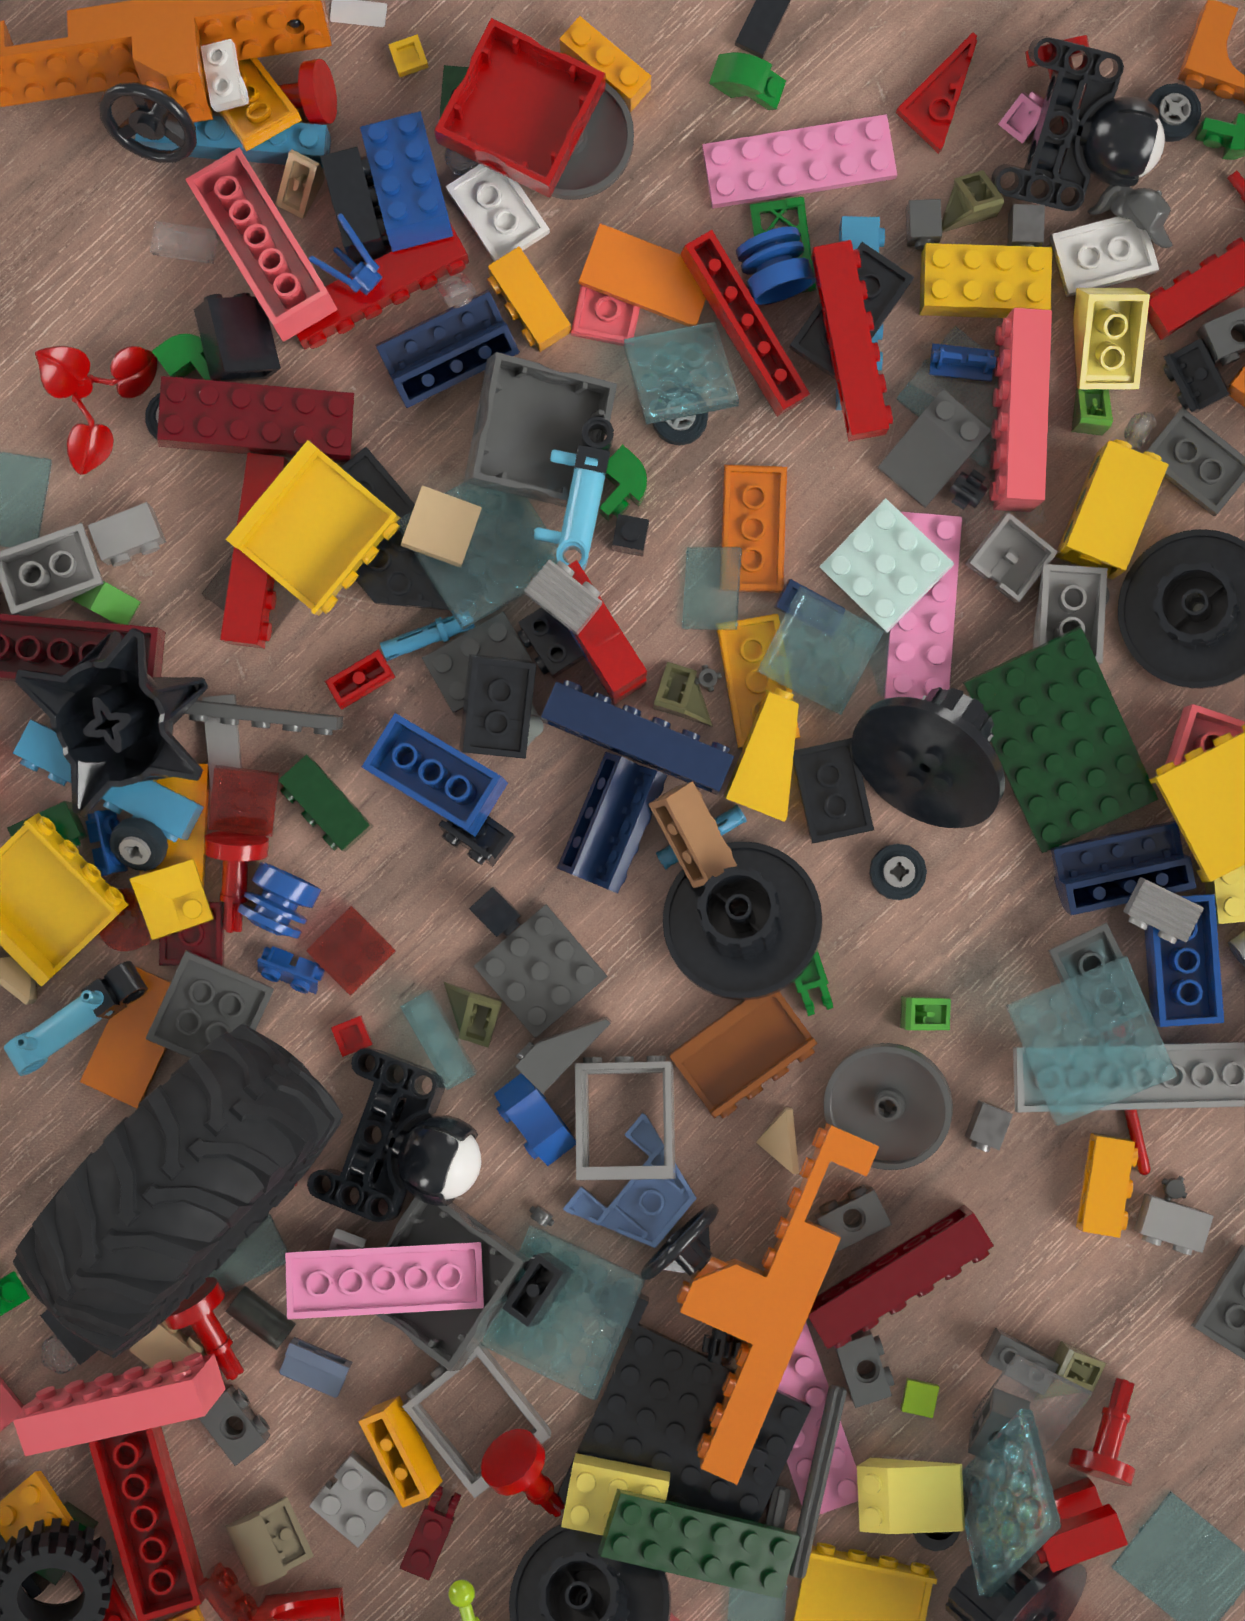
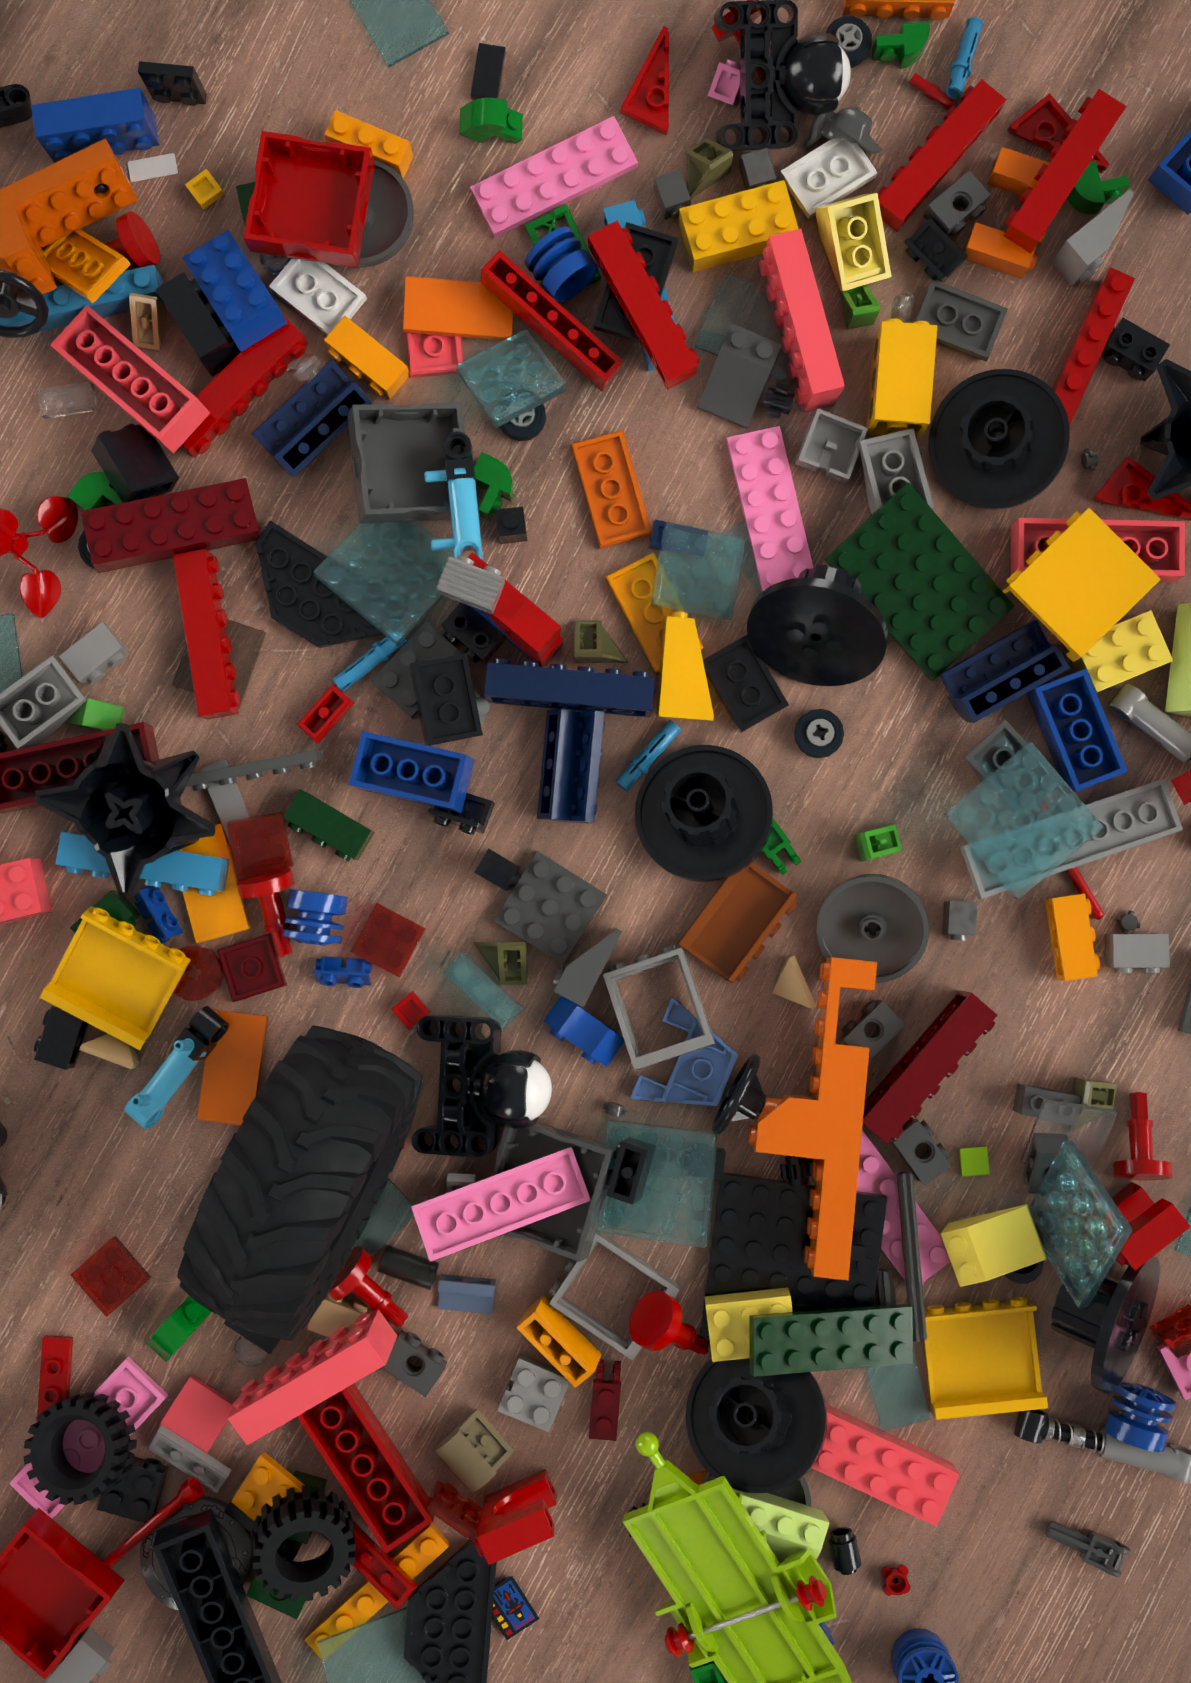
camera: 15 degrees left, 0 degrees up
(138, 844) = (183, 906): black wheel -> none
(172, 899) = (226, 943): yellow plate -> none
(205, 1004) = (278, 1018): dark grey plate -> none
(223, 76) = (53, 247): white plate -> none
(314, 529) = (247, 599): yellow panel -> none
(364, 276) = (223, 378): blue plant -> none
(441, 526) = (352, 565): tan tile -> none
(692, 833) = (640, 753): medium nougat brick -> none
(708, 678) = (612, 623): dark grey piece -> none
(712, 588) = (592, 548): clear light blue piece -> none
(886, 565) = (730, 484): light aqua plate -> none
(962, 362) = (740, 299): blue hinge -> none
(1162, 910) = (1049, 694): light grey brick -> none

